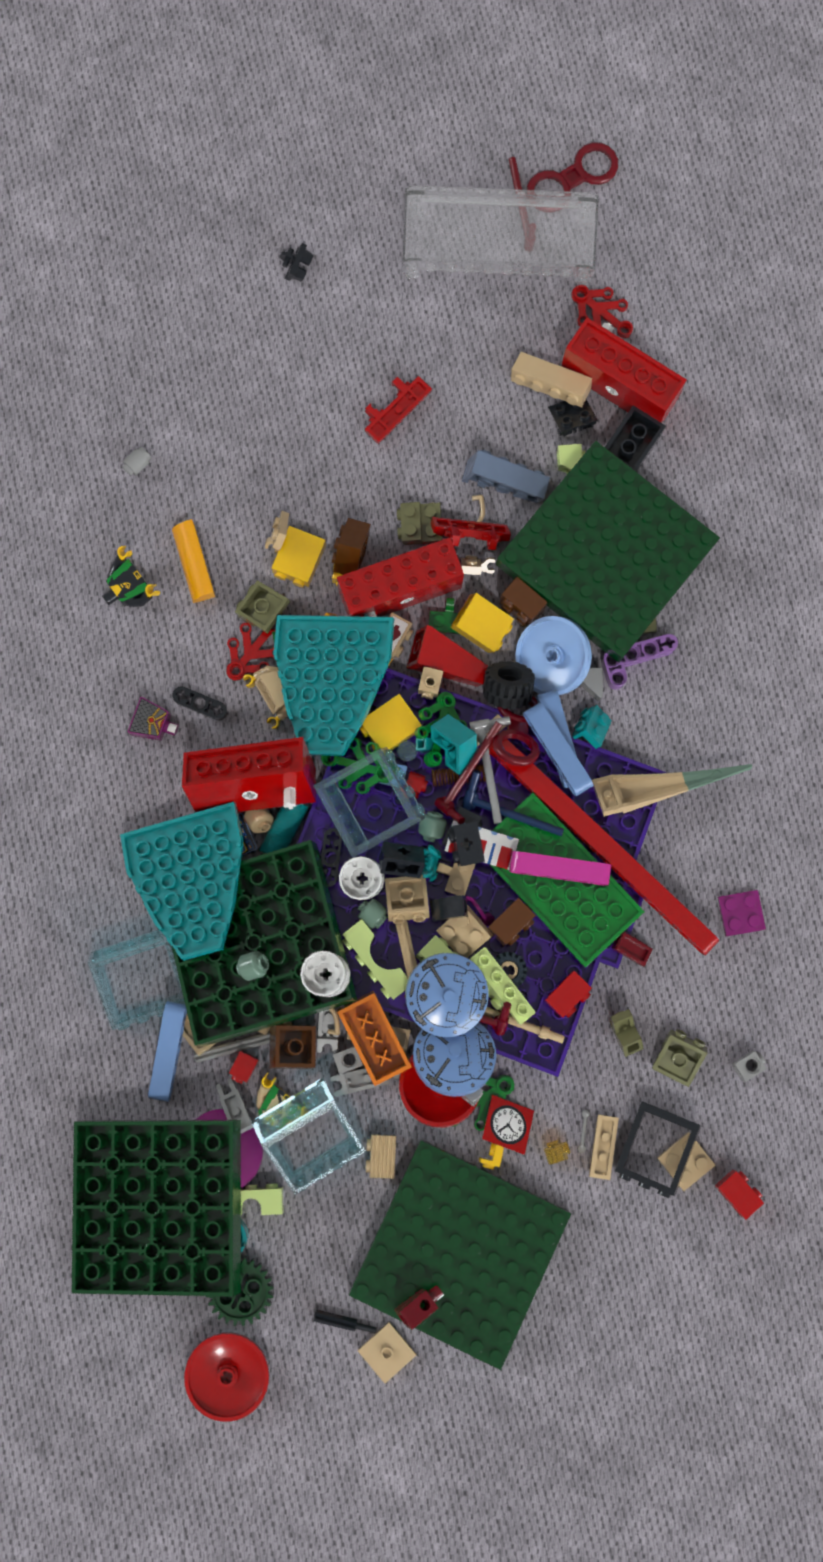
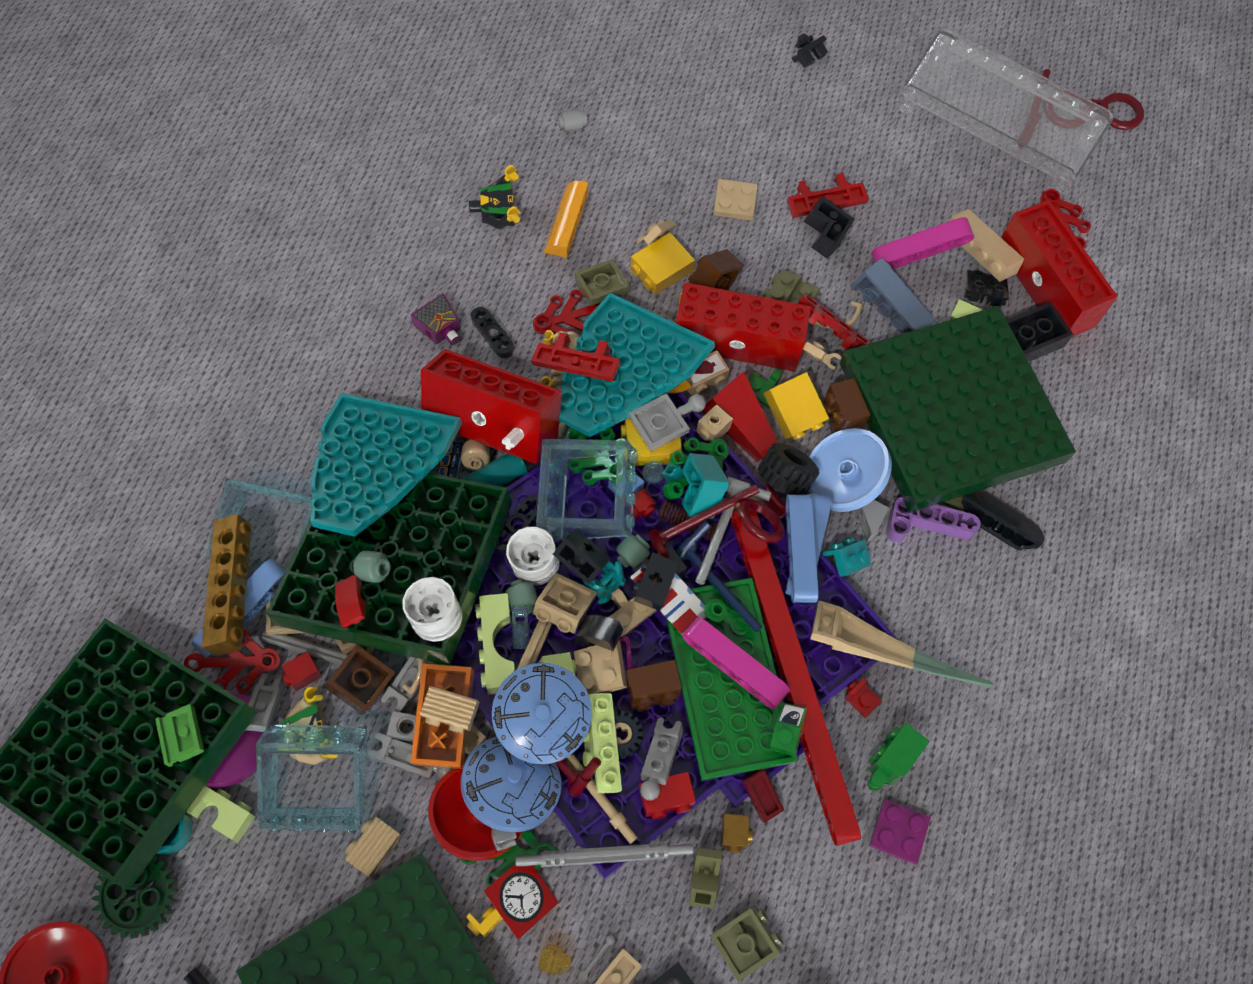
camera: 30 degrees right, 15 degrees down
(140, 1036) = (227, 586): none -> pearl gold brick
(191, 1090) = (238, 662): none -> red plant
(203, 1172) = (179, 735): none -> bright green plate
(255, 1003) = (349, 602): none -> red slope
(278, 701) = (562, 358): none -> red hinge
(321, 455) = (735, 199): none -> tan plate
(380, 1033) = (450, 709): none -> tan brick
(387, 938) = (520, 629): none -> clear light blue bar
(392, 710) = (661, 421): none -> light grey plate
(418, 436) = (830, 223): none -> black brick
(502, 411) = (925, 243): none -> dark pink beam
(517, 839) = (711, 615): none -> green plate
(548, 973) = (660, 758): none -> light grey plate
(548, 1062) = (604, 855): none -> light grey axle
(626, 894) = (788, 729): none -> green slope
(628, 987) = (735, 833): none -> pearl gold brick
(662, 830) = (862, 697): none -> red bracket
(692, 623) = (1003, 521): none -> black brick
(711, 864) = (897, 757): none -> green hinge

